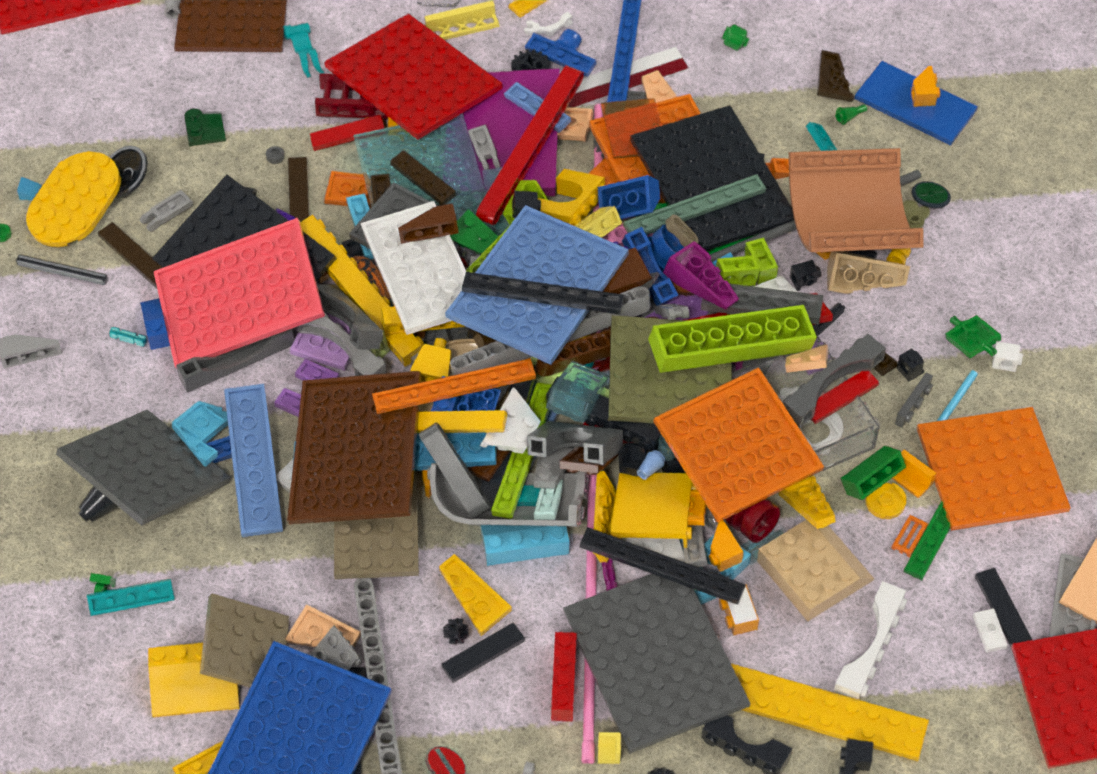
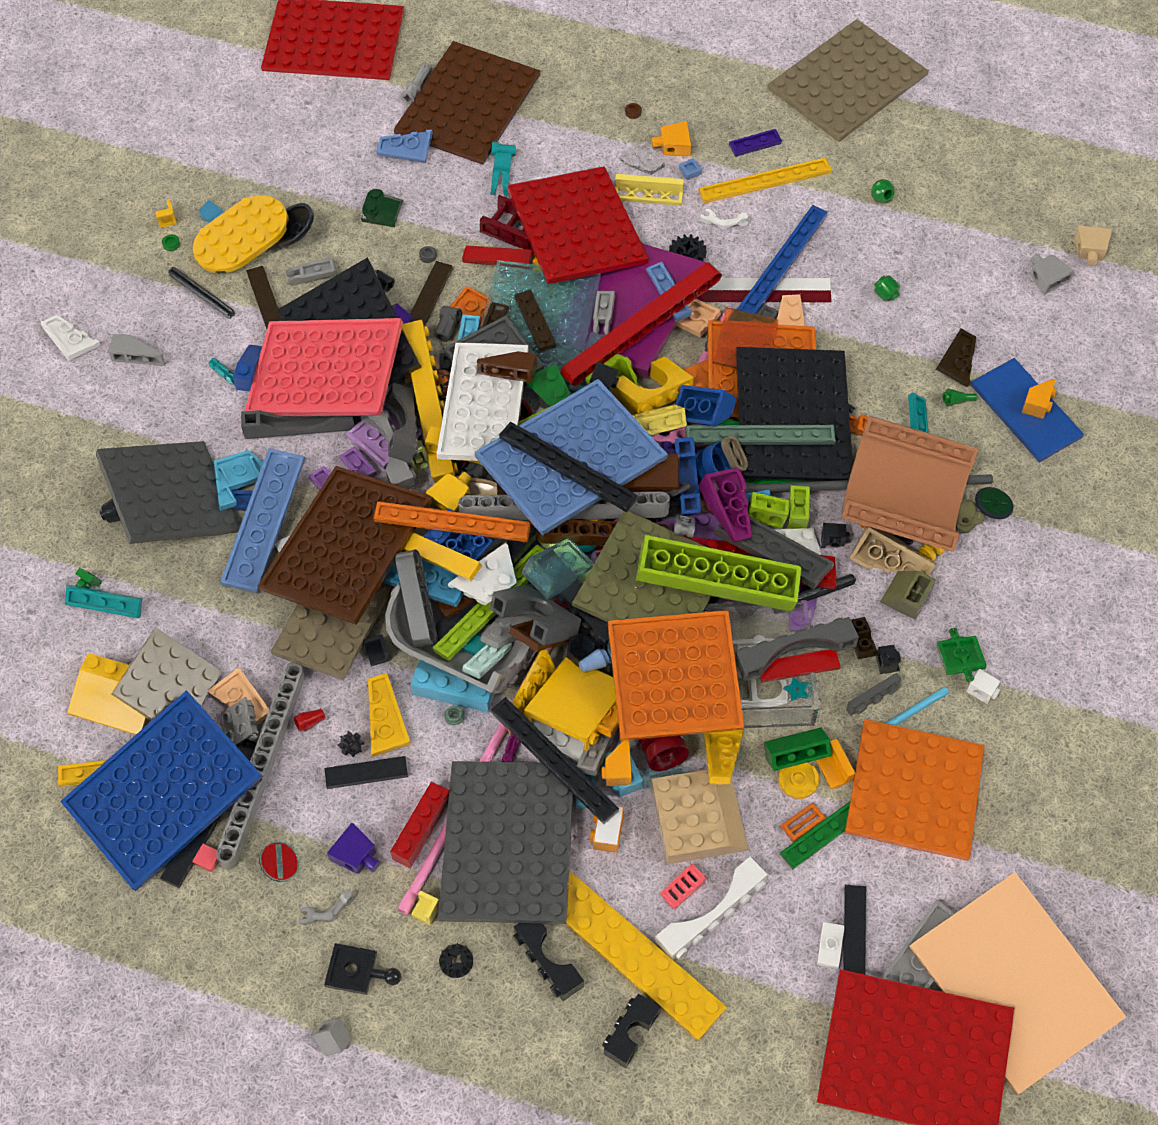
camera: 25 degrees right, 5 degrees up
(198, 59) = (407, 147): none -> medium blue wing
(332, 208) = (448, 319): none -> dark grey piece
(399, 627) = (308, 719): none -> red cone
(433, 537) = (376, 650): none -> black panel
(513, 725) = (354, 851): none -> dark purple torso
(539, 562) = (454, 710): none -> sand green plate
(563, 50) = (723, 247): blue plate -> none
(808, 360) = (782, 620): light nougat wing -> none
(840, 621) = (691, 869): none -> coral slope
(843, 427) = (796, 684): none -> teal plate
(898, 299) = (908, 592): none -> olive slope

